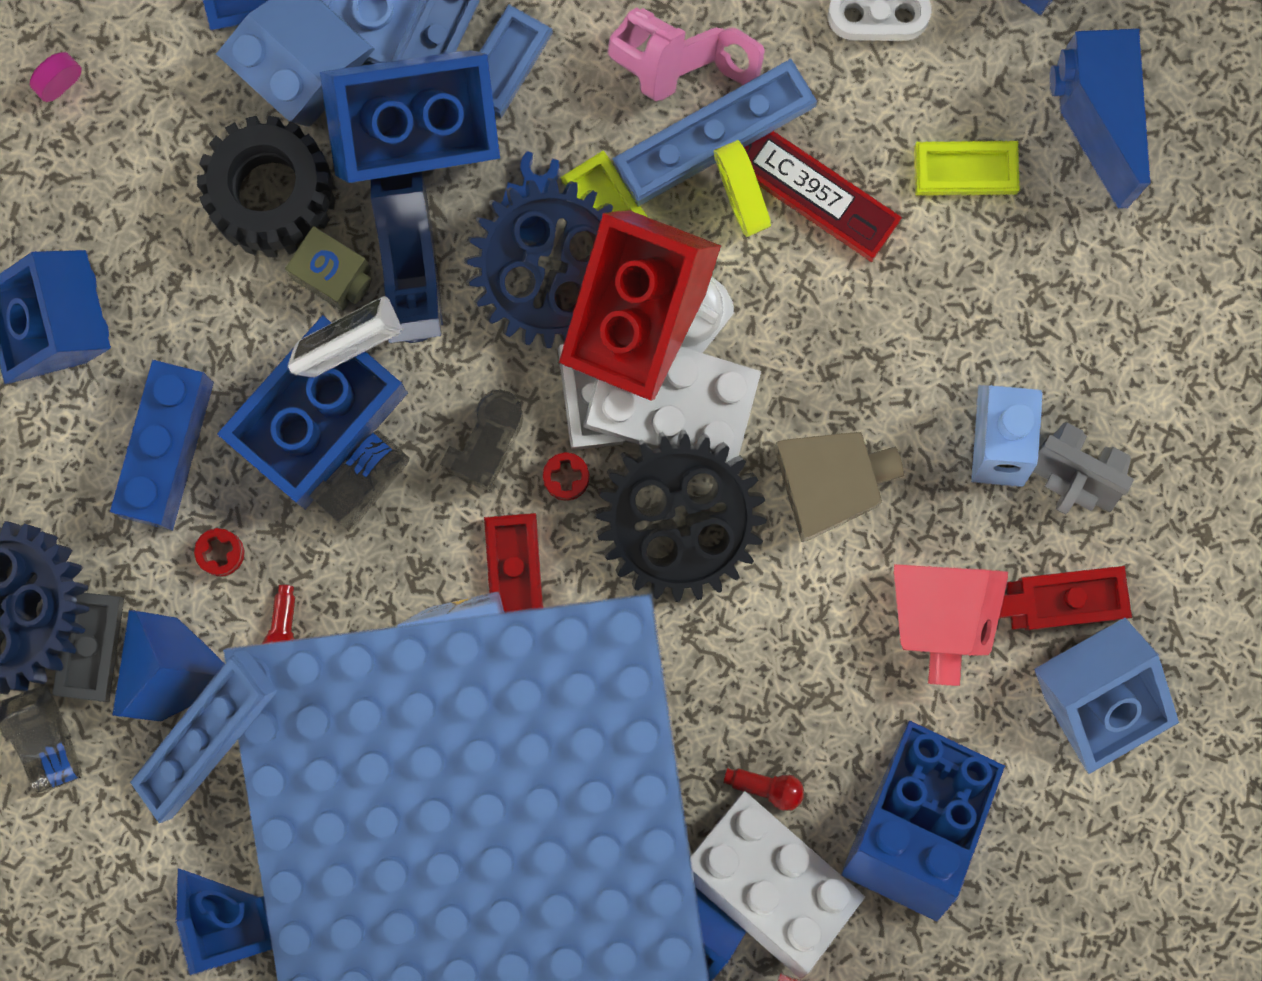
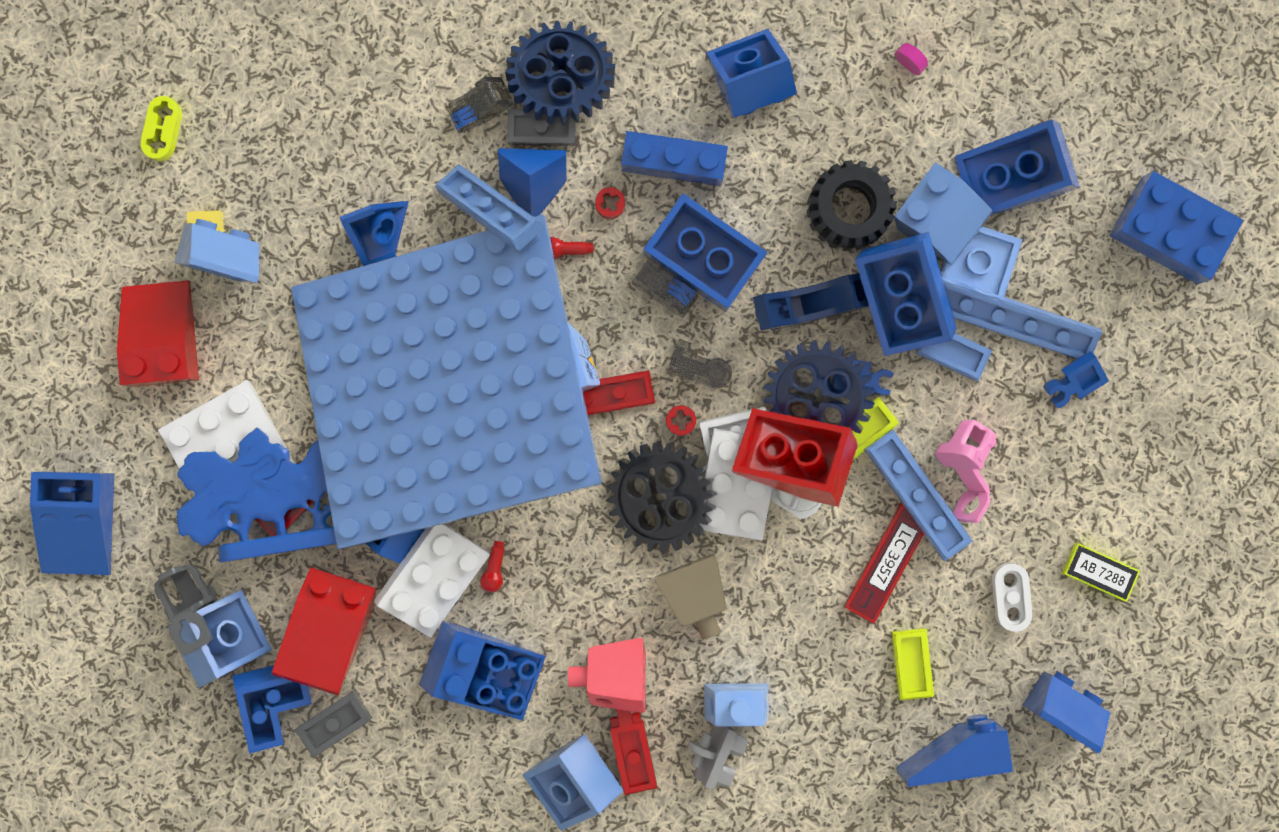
camera: 85 degrees right, 5 degrees up
(330, 269) = (800, 253): olive brick -> none
(344, 338) = (751, 268): white slope -> none
(742, 188) = (881, 517): neon yellow beam -> none

